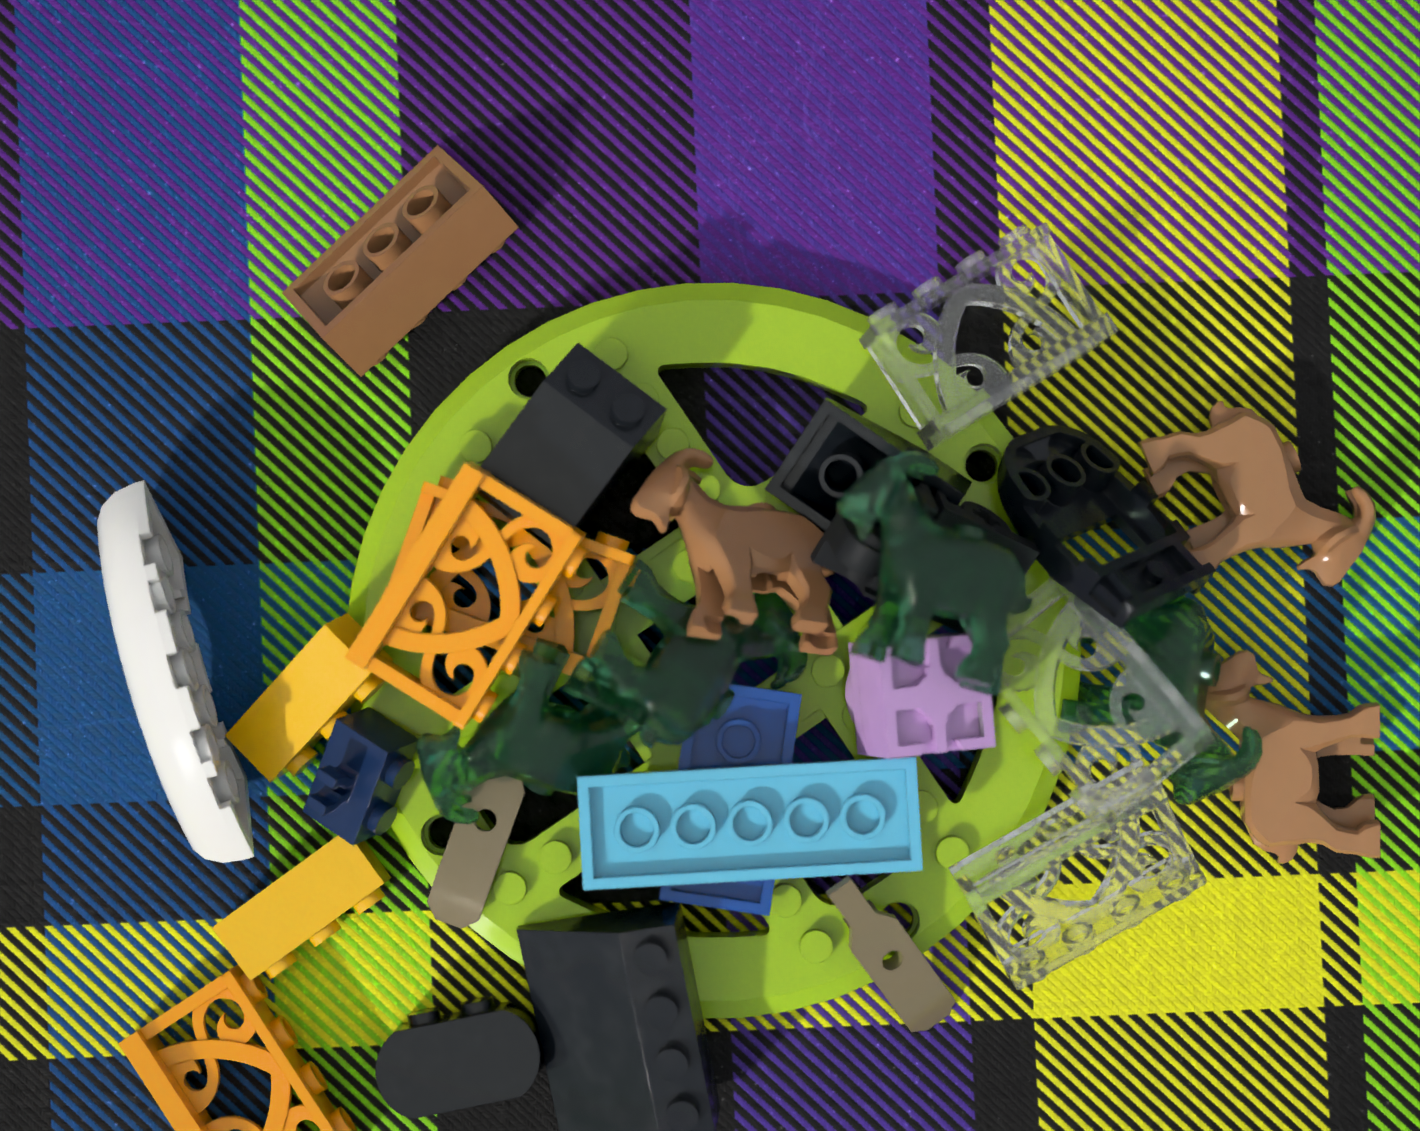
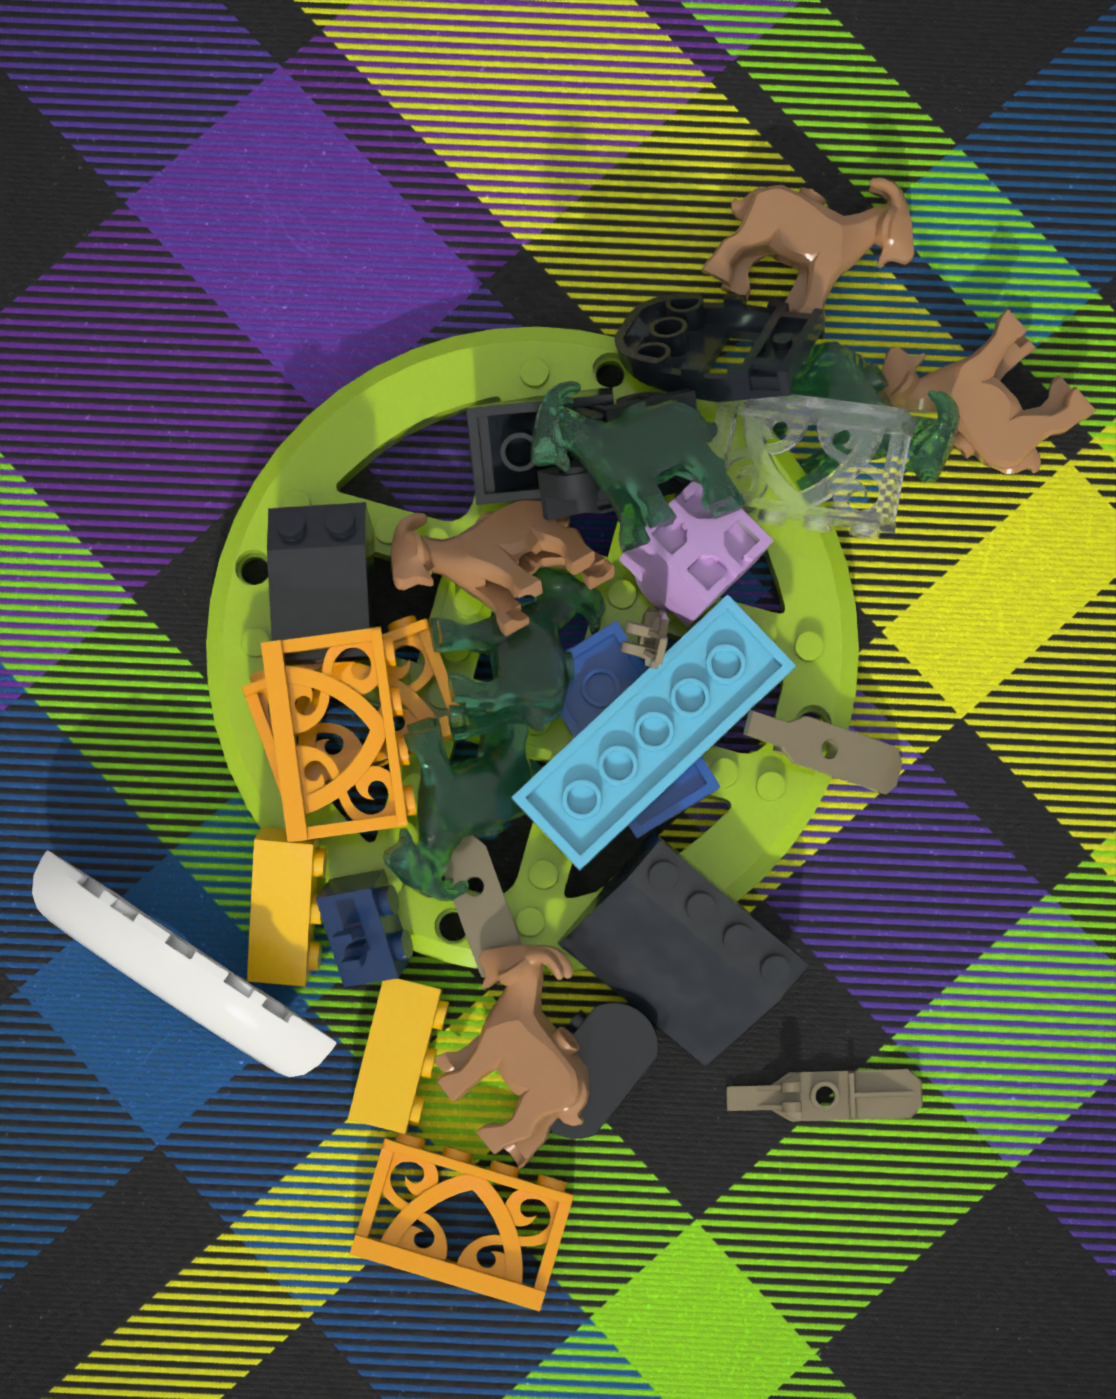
camera: 40 degrees left, 5 degrees down
(400, 260) = (97, 561): medium nougat slope -> none
(409, 999) = (526, 1051): none -> medium nougat animal
(815, 744) = (651, 637): none -> dark tan piece
(959, 400) = (558, 339): clear fence -> none
(1070, 926) = (934, 628): clear fence -> none

